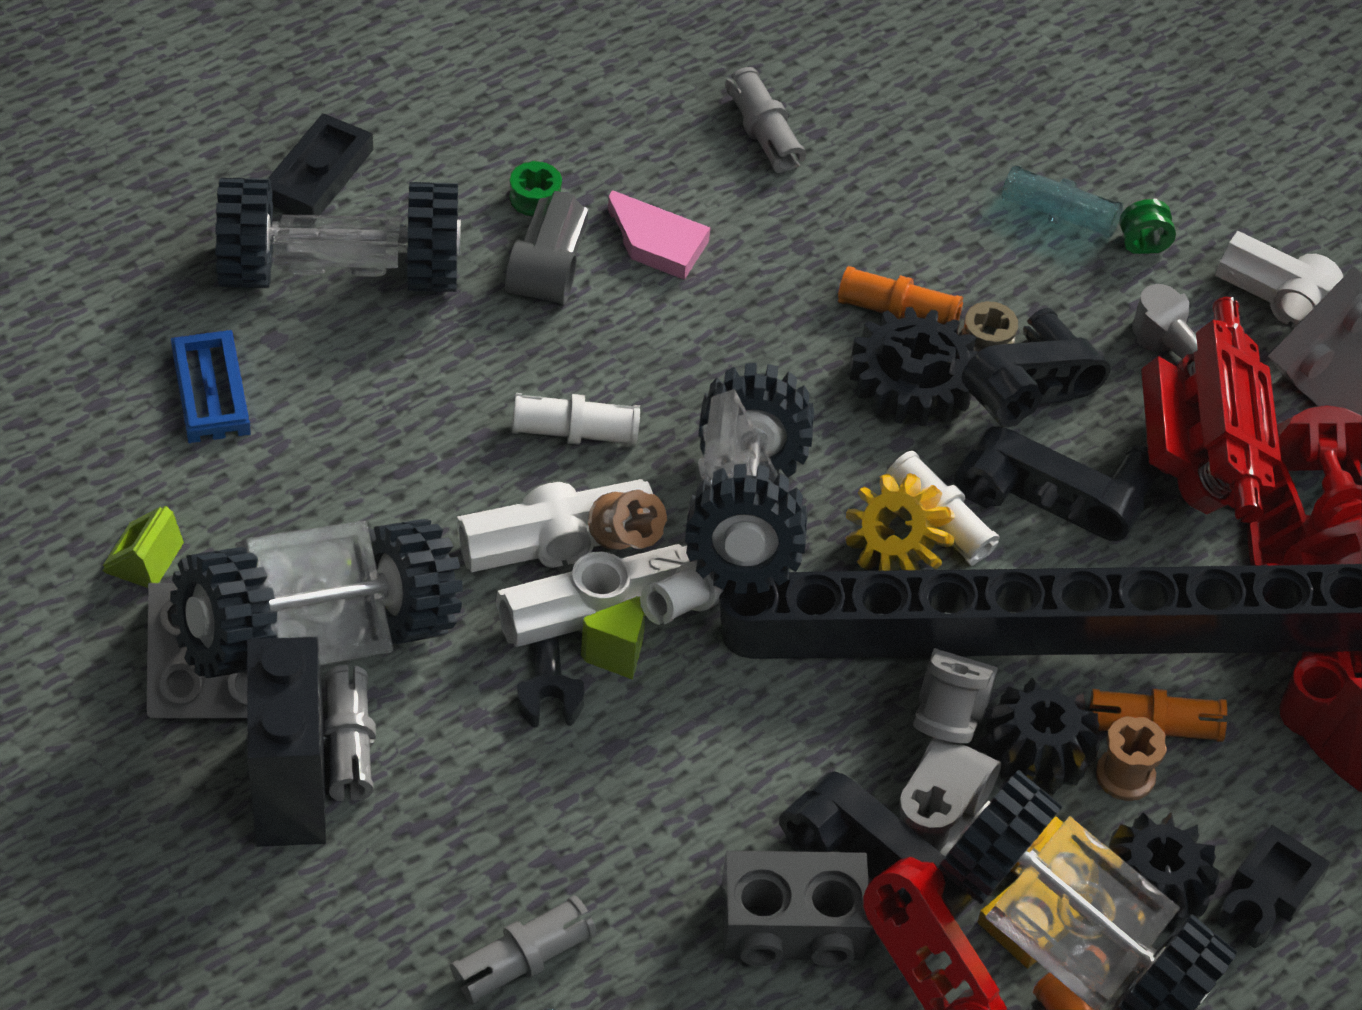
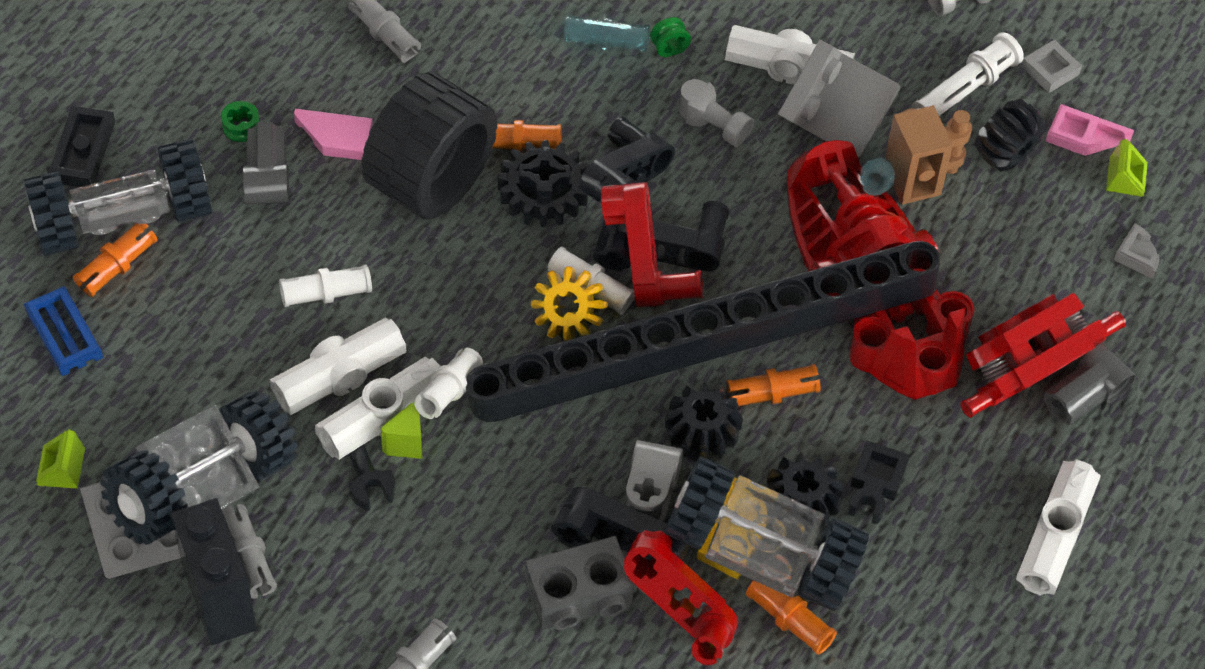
camera: 15 degrees left, 5 degrees up
(309, 313) = (114, 258): none -> orange pin
(614, 508) = (388, 351): medium nougat bush -> none
(742, 513) = (468, 332): black plate -> none
(771, 270) = (429, 145): none -> black tyre
(953, 696) = (639, 412): light grey piece -> none
(992, 315) = (585, 130): dark tan bush -> none
(1026, 417) = (632, 206): none -> red beam
(1131, 758) = (764, 421): medium nougat bush -> none
(1215, 418) = (755, 169): red piece -> none

